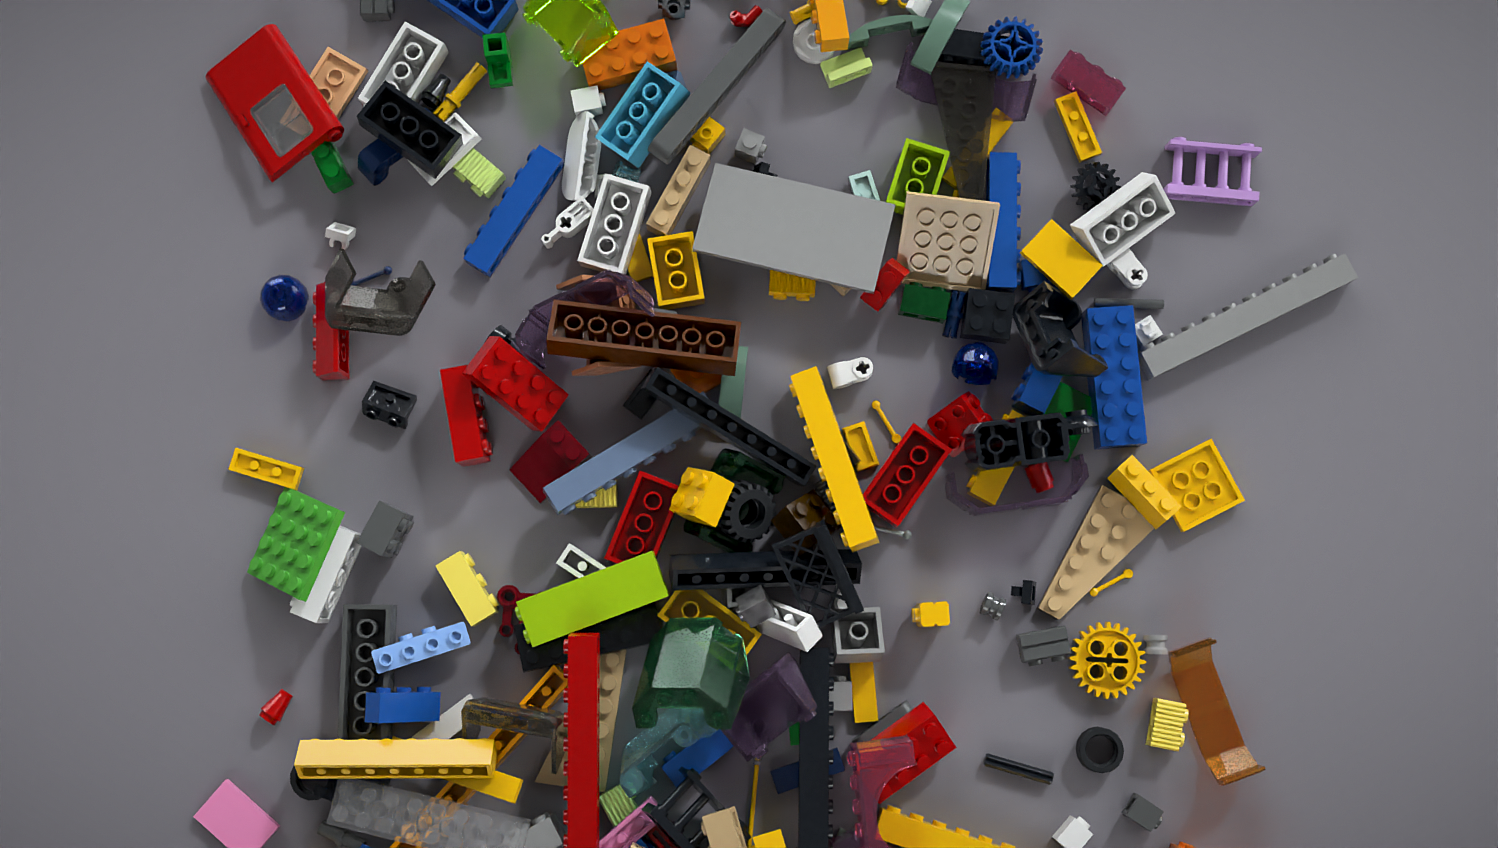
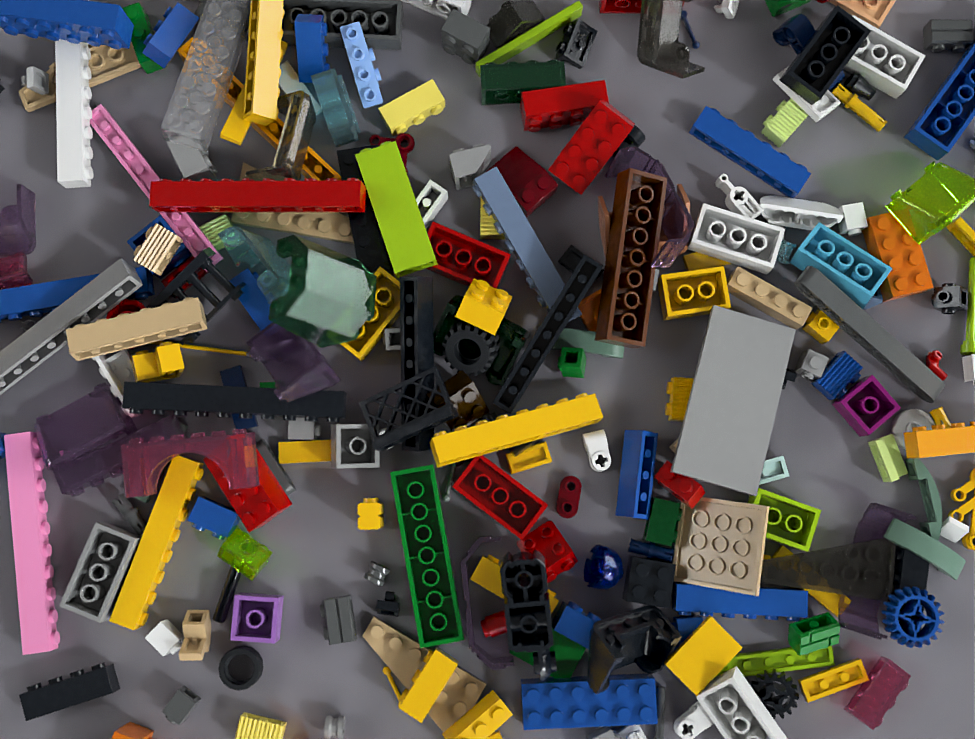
camera: 90 degrees right, 0 degrees up
(364, 475) = (513, 20): none -> clear smoke brick
(383, 458) = (532, 36): none -> lime tile
(438, 465) = (507, 81): none -> clear green brick
(470, 674) = (336, 107): none -> clear light blue brick
(498, 60) = (890, 141): green brick -> none
(538, 521) = (469, 164): none -> light grey slope
(755, 606) = (383, 352): flat silver brick -> none
(756, 401) = (572, 362): none -> green brick
(760, 118) = (837, 376): none -> blue brick
(791, 627) = (366, 380): white brick -> none
(792, 89) = (866, 406): none -> magenta brick
(875, 329) = (636, 474): none -> blue brick
(895, 437) = (536, 491): yellow hinge -> none
(901, 402) = (566, 496): none -> dark red plate
(940, 789) = (214, 517): none -> blue brick
(971, 551) = (427, 556): none -> green brick
(979, 763) = (247, 564): none -> clear neon green brick
(1032, 146) = (813, 633): none -> green brick
(1046, 734) = (257, 617): none -> medium lavender brick
(1059, 177) = (780, 659): none -> lime tile
(1068, 800) = (196, 635): none -> tan brick
(1106, 545) = (427, 684): none -> yellow brick
(1106, 681) = (303, 676): yellow gear -> none

